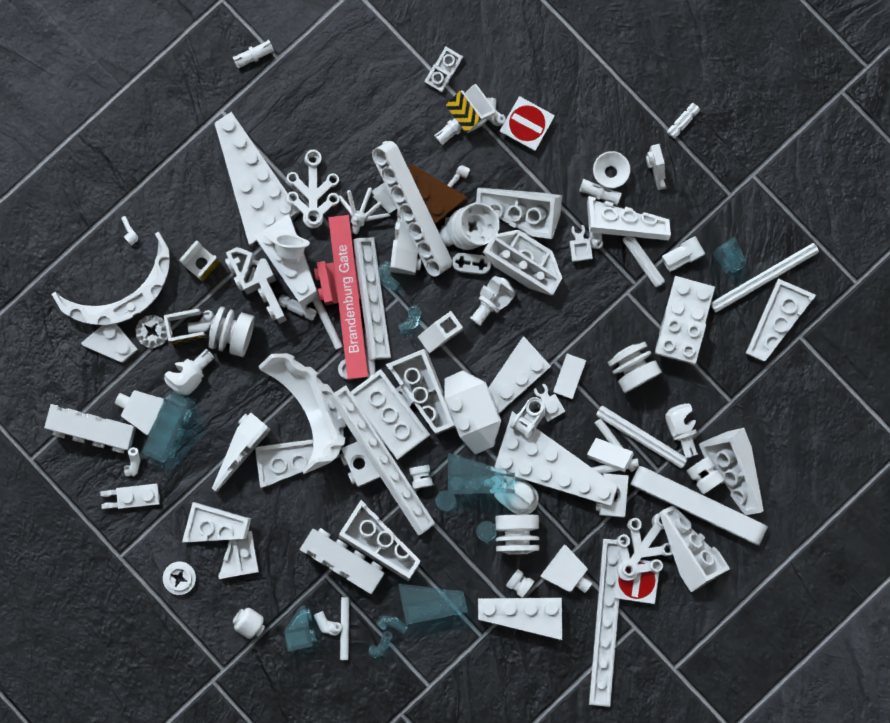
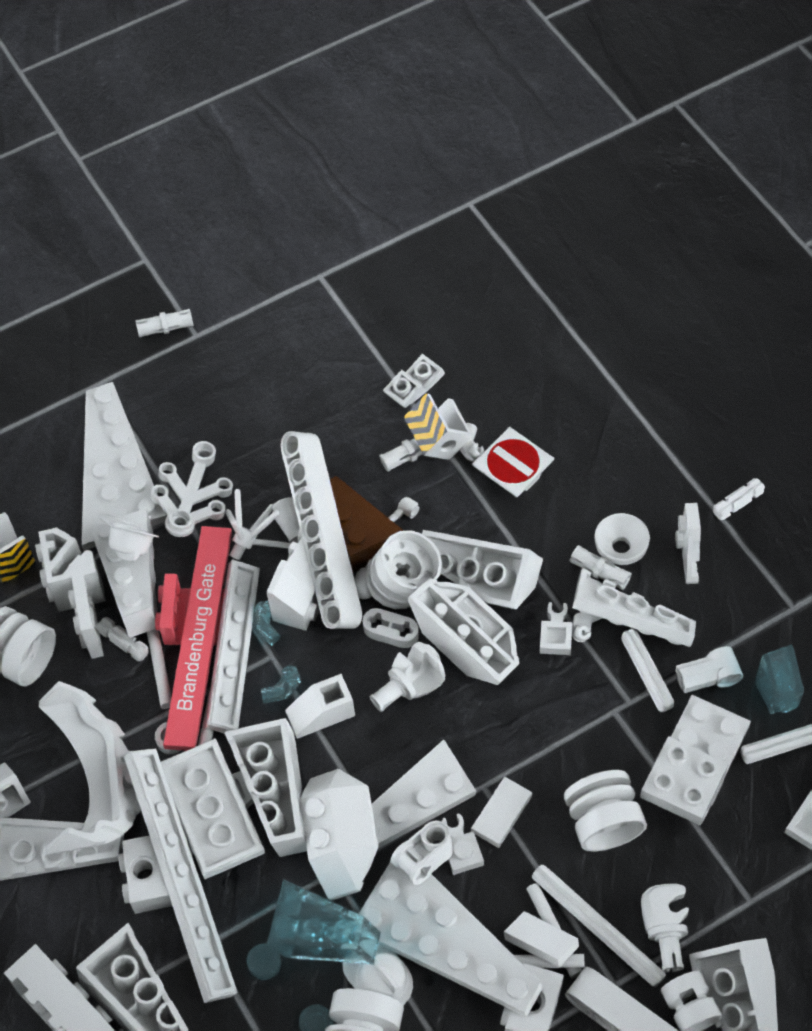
camera: 15 degrees right, 25 degrees down
(417, 473) = (234, 913): white wheel -> none

